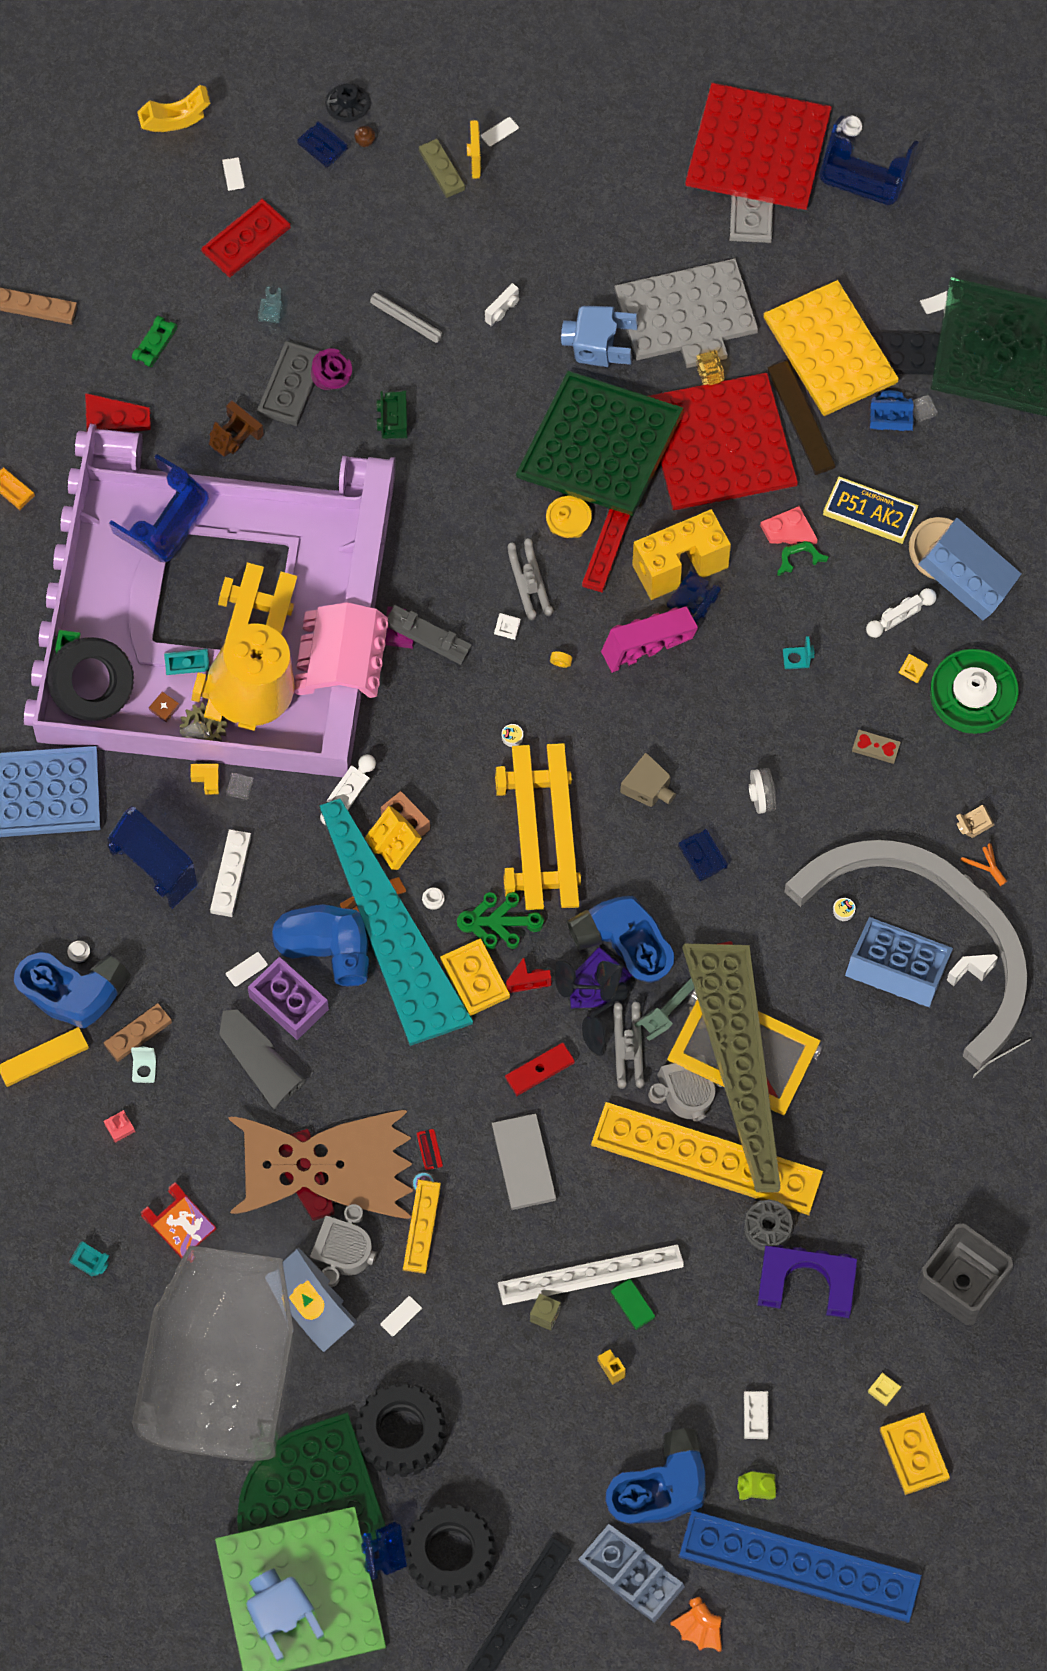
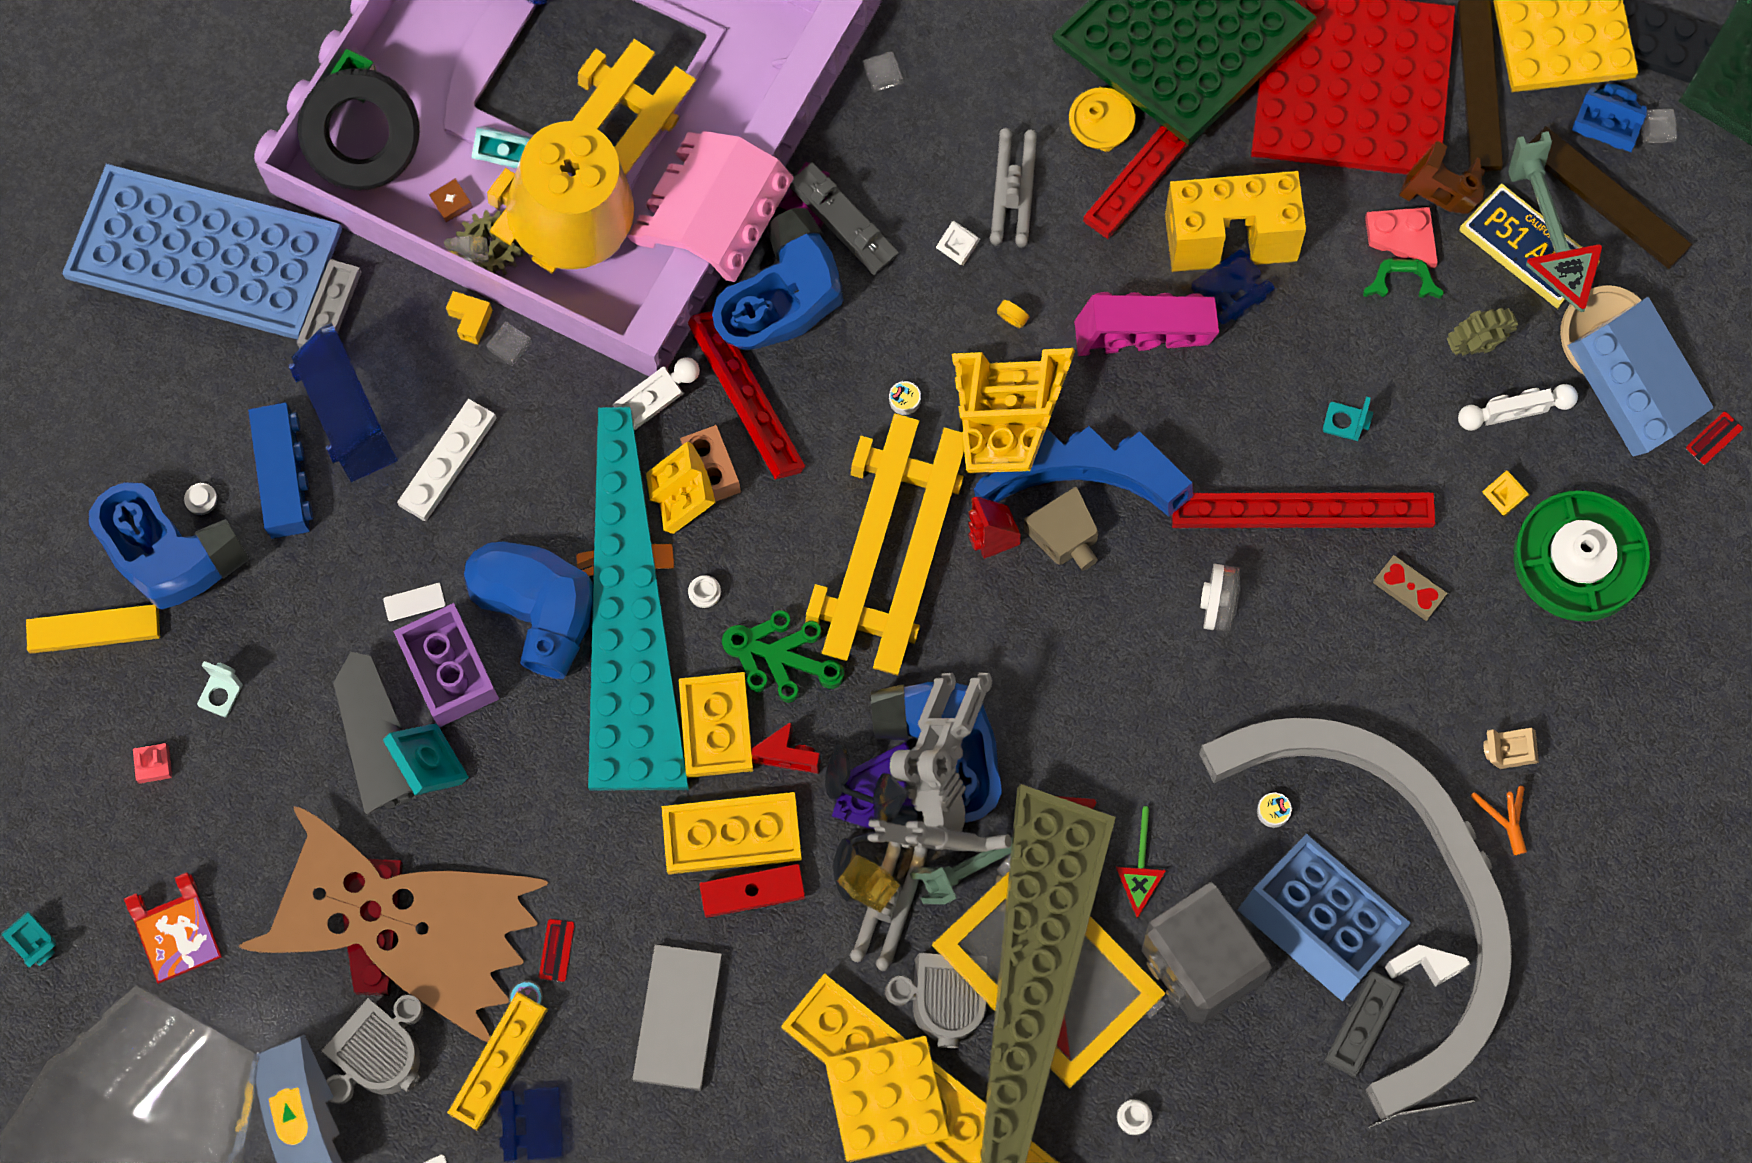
camera: 25 degrees right, 5 degrees up
(110, 799) = (331, 298): none -> light grey plate
(124, 916) = (280, 470): none -> blue brick
(137, 1032) = (232, 639): medium nougat plate -> none
(299, 1060) = (425, 759): none -> teal plate
(409, 766) = (747, 398): none -> red plate
(412, 695) = (786, 296): none -> blue piece
(413, 532) = (883, 71): none -> clear plate
(465, 1254) = (543, 1124): none -> clear blue plate
(512, 1039) = (731, 833): none -> yellow plate
(583, 717) = (1007, 407): none -> yellow wedge
(602, 796) = (992, 527): none -> red slope
(614, 1035) = (868, 883): none -> clear yellow panel
(632, 953) = (932, 775): none -> light grey piece
(644, 732) = (1087, 457): none -> blue arch
(674, 1161) = (886, 1099): none -> yellow plate
(702, 855) = (1102, 660): clear blue plate -> none
(778, 981) = (1140, 882): none -> piece
(791, 721) = (1306, 510): none -> red plate
(803, 490) = (1441, 186): none -> reddish brown tile
(829, 1120) = (1134, 1117): none -> white plate
(836, 1005) = (1204, 955): none -> flat silver plate
(862, 573) = (1482, 331): none -> olive gear
(901, 516) = (1566, 270): none -> sand green piece
(907, 464) = (1613, 202): none -> dark brown tile
(946, 1017) = (1363, 1023): none -> dark grey tile
(1028, 592) = (1714, 438): none -> sticker

